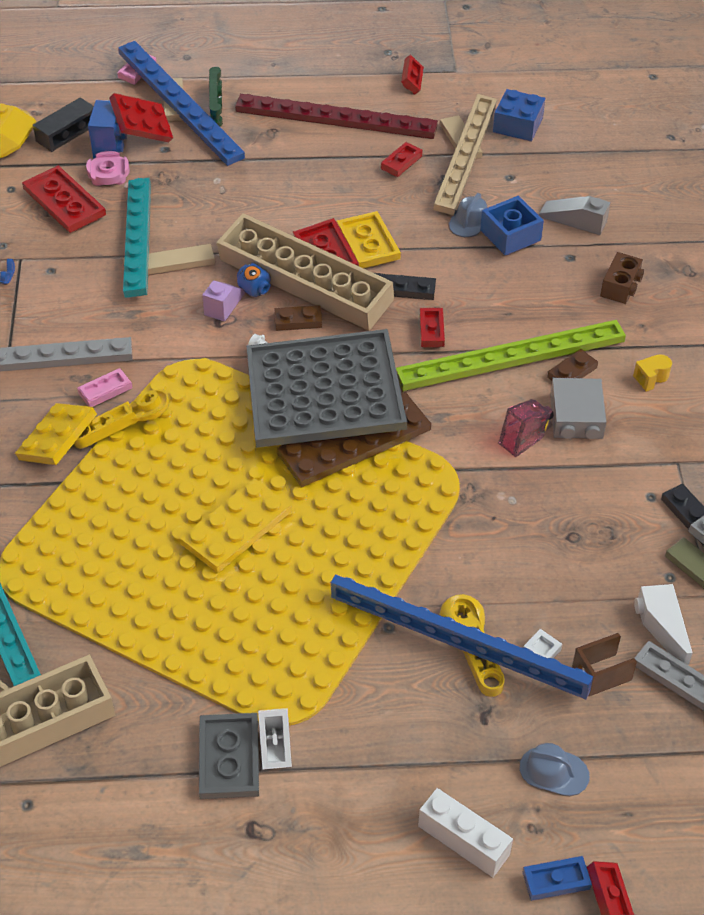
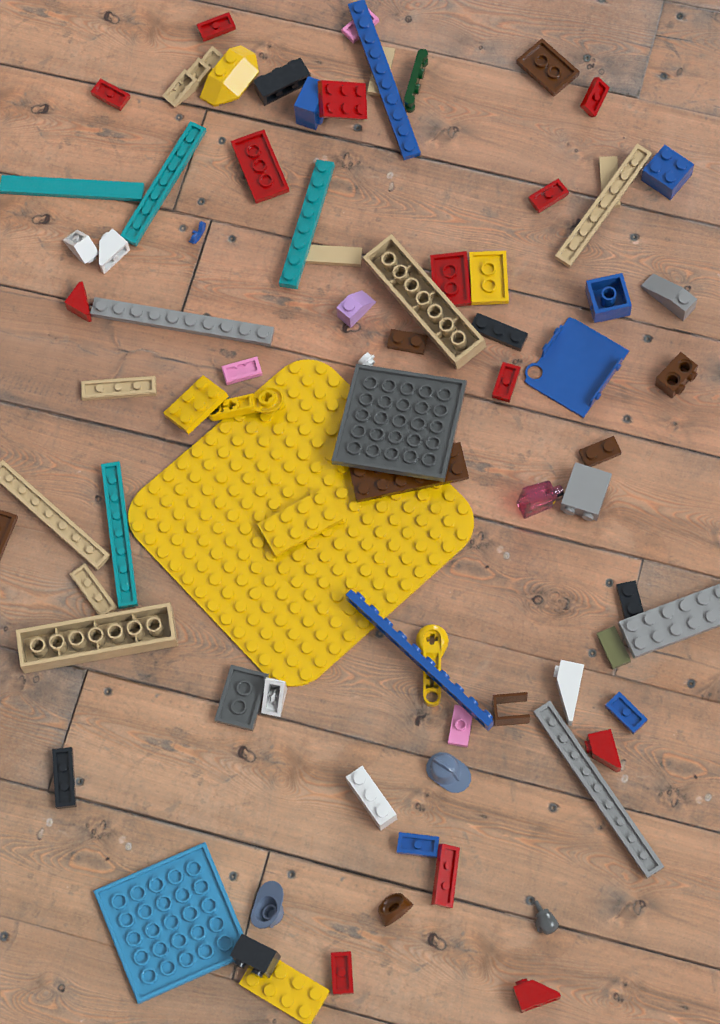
camera: 25 degrees right, 20 degrees up
(115, 174) = (308, 149): bright pink plate -> none
(253, 280) = (382, 298): blue head -> none
(336, 116) = (513, 128): dark red plate -> none
(352, 62) = (547, 67): none -> reddish brown plate
(467, 217) = (582, 270): sand blue piece -> none
(504, 298) = (576, 366): none -> blue piece
(509, 355) = (557, 426): lime plate -> none
(544, 644) = (476, 683): white plate -> none
(545, 708) = (460, 727): none -> bright pink plate
(652, 370) = (660, 472): yellow leg -> none

